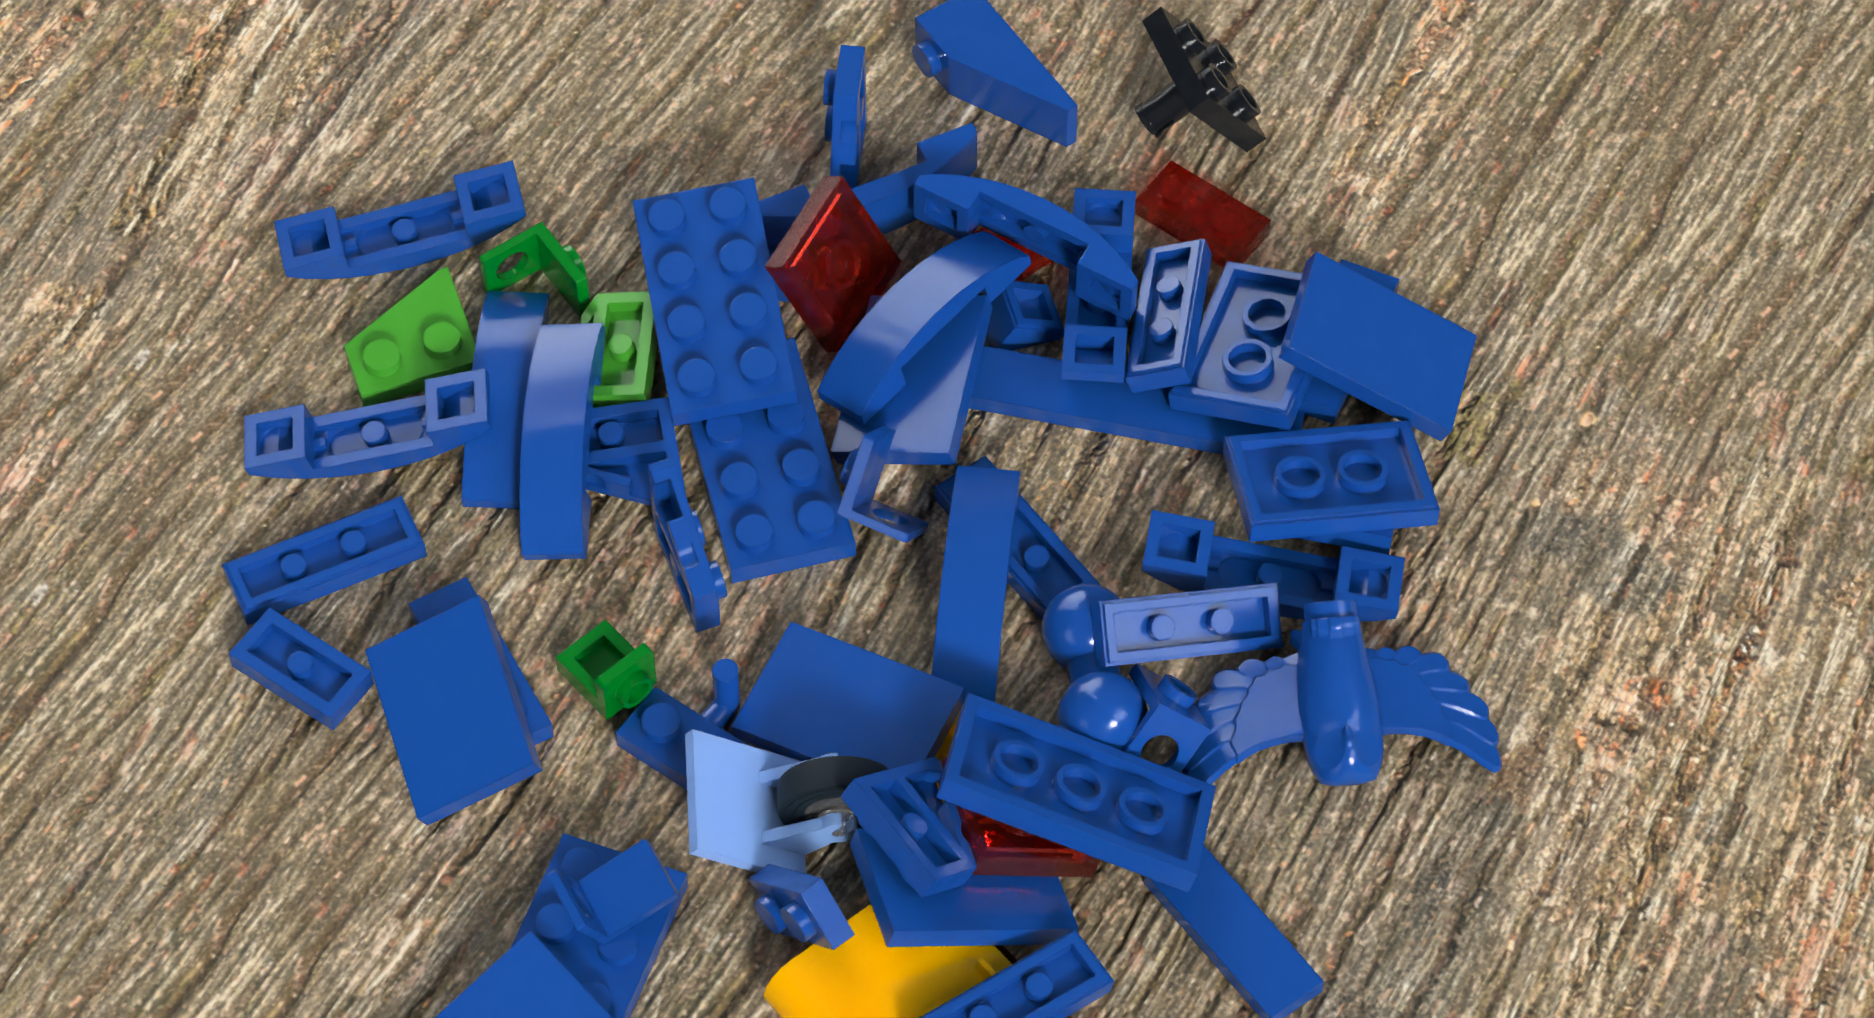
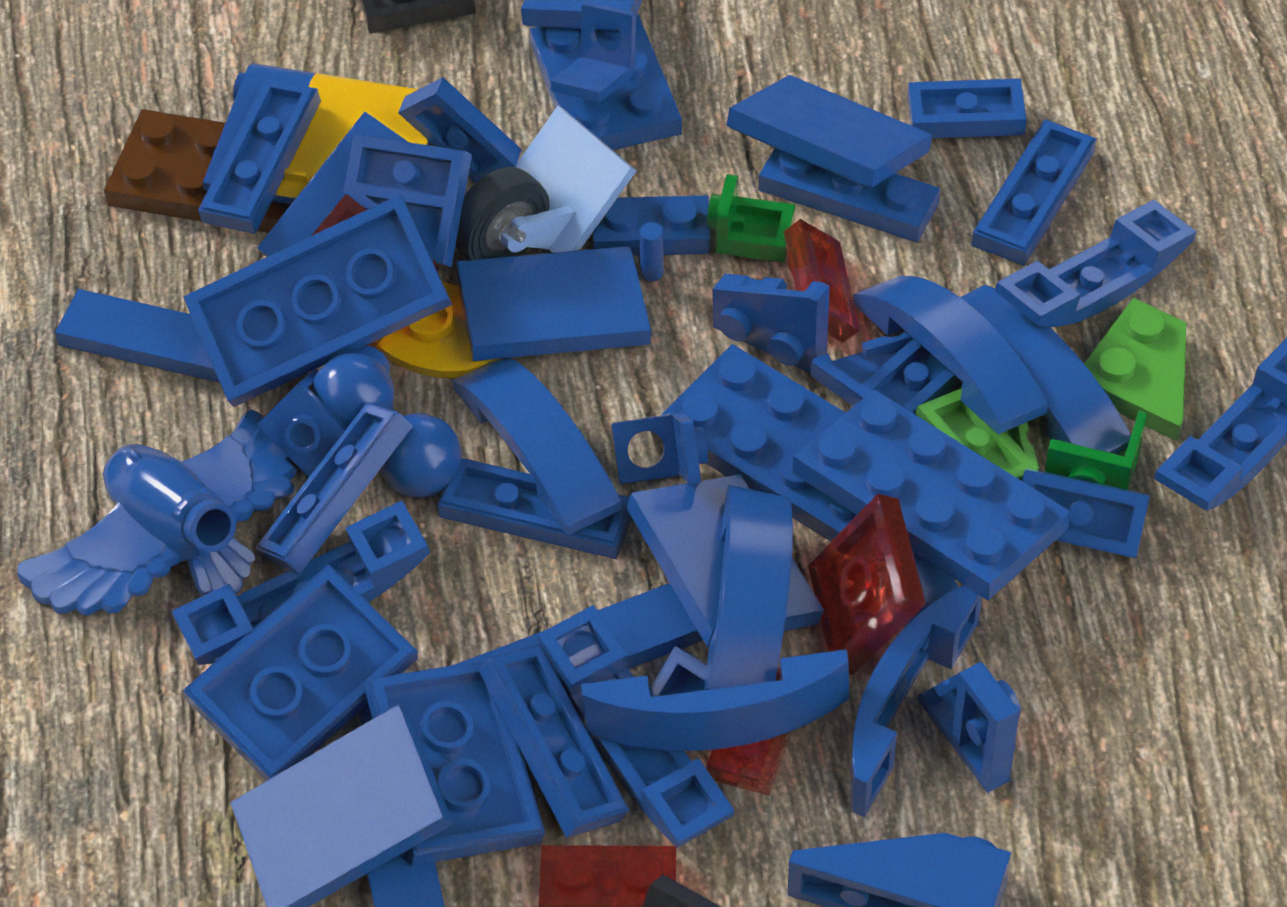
camera: 145 degrees right, 5 degrees down
(598, 240) = (1100, 514): none -> blue plate
(601, 575) = (821, 259): none -> clear red plate

